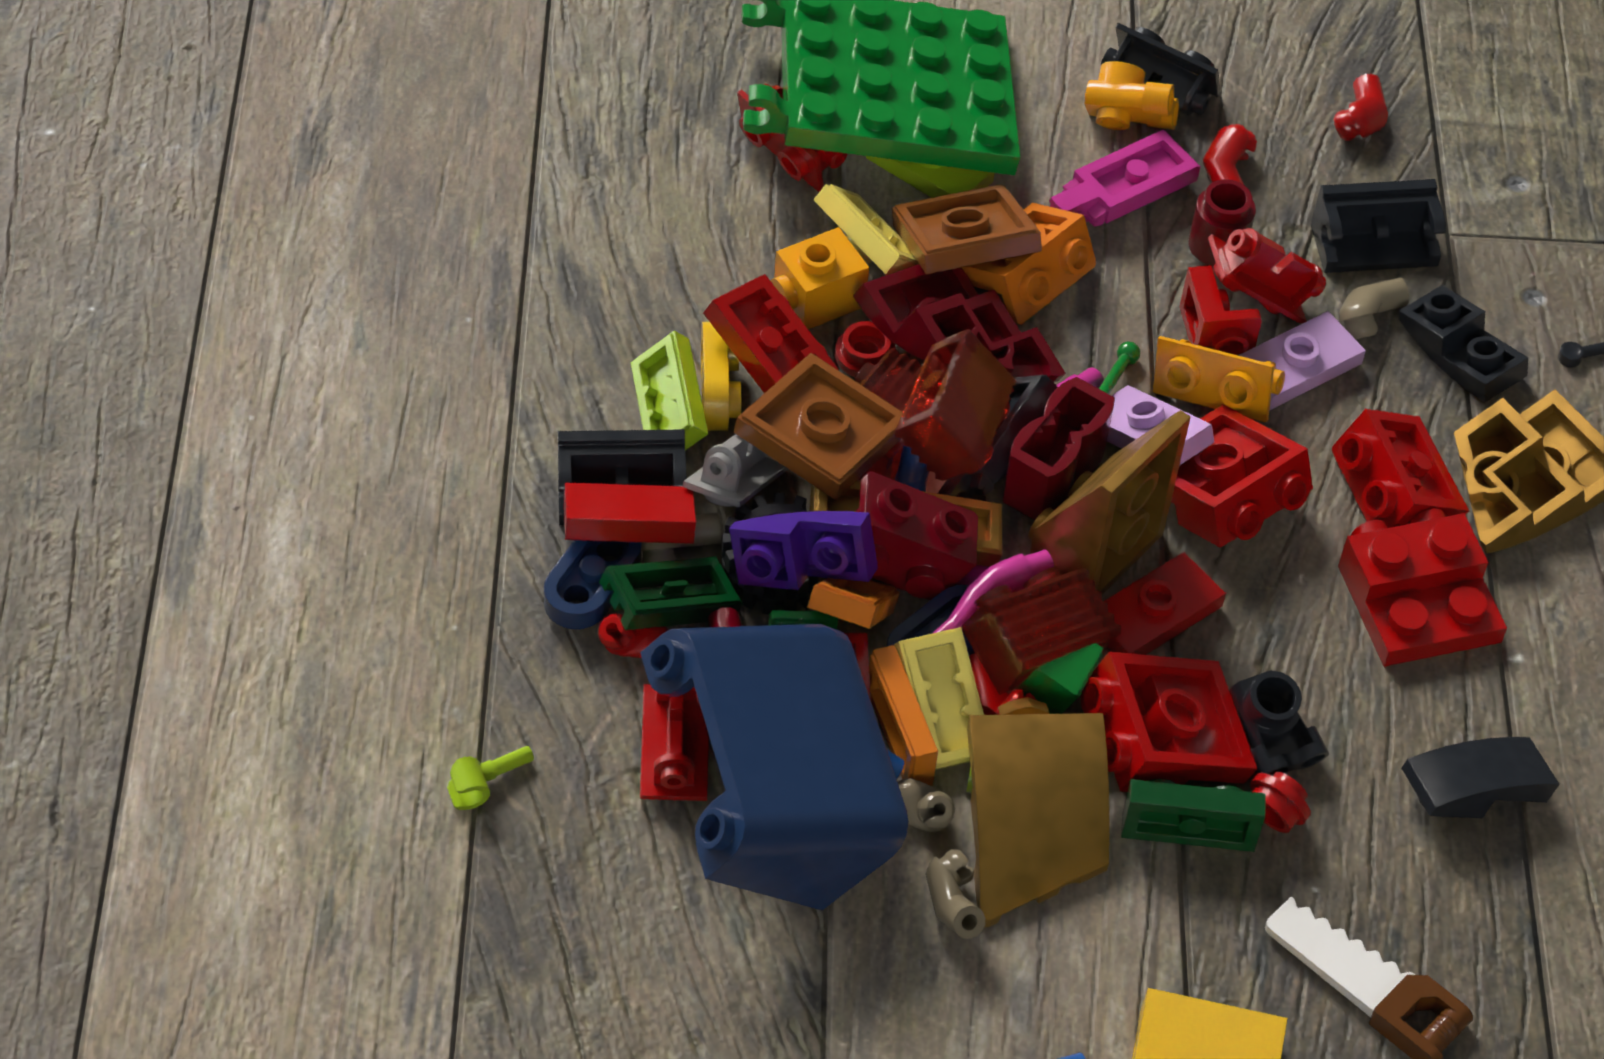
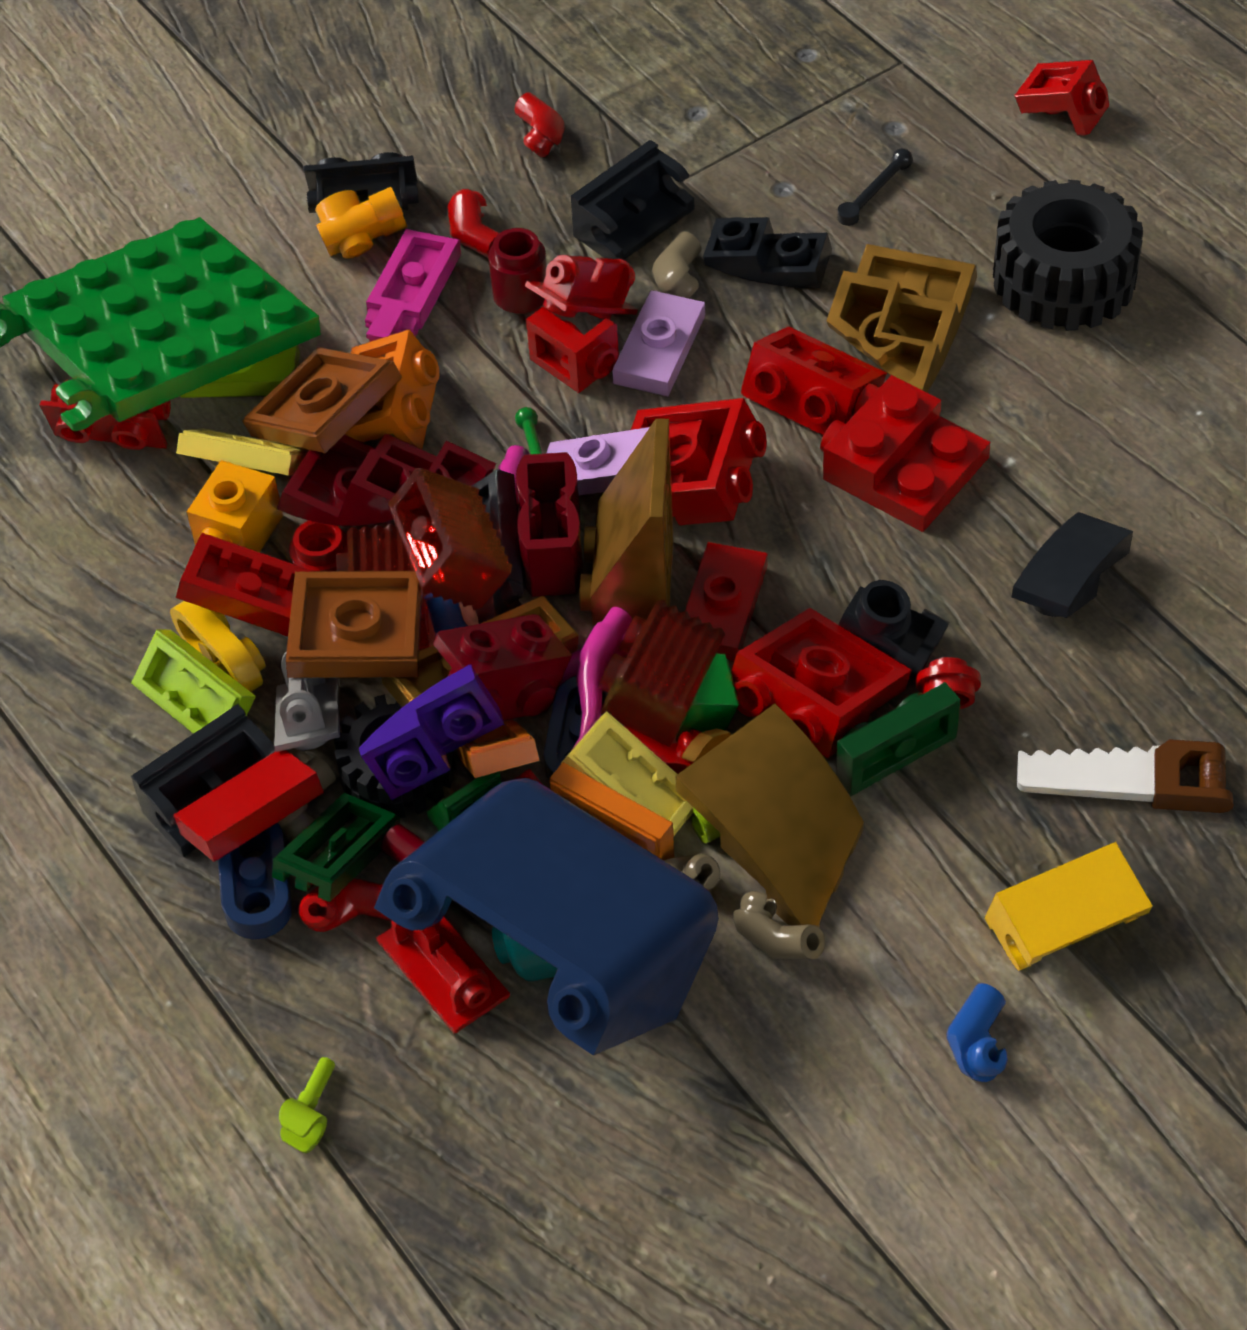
camera: 30 degrees left, 0 degrees up
(1215, 378) = (616, 393): light orange hinge -> none

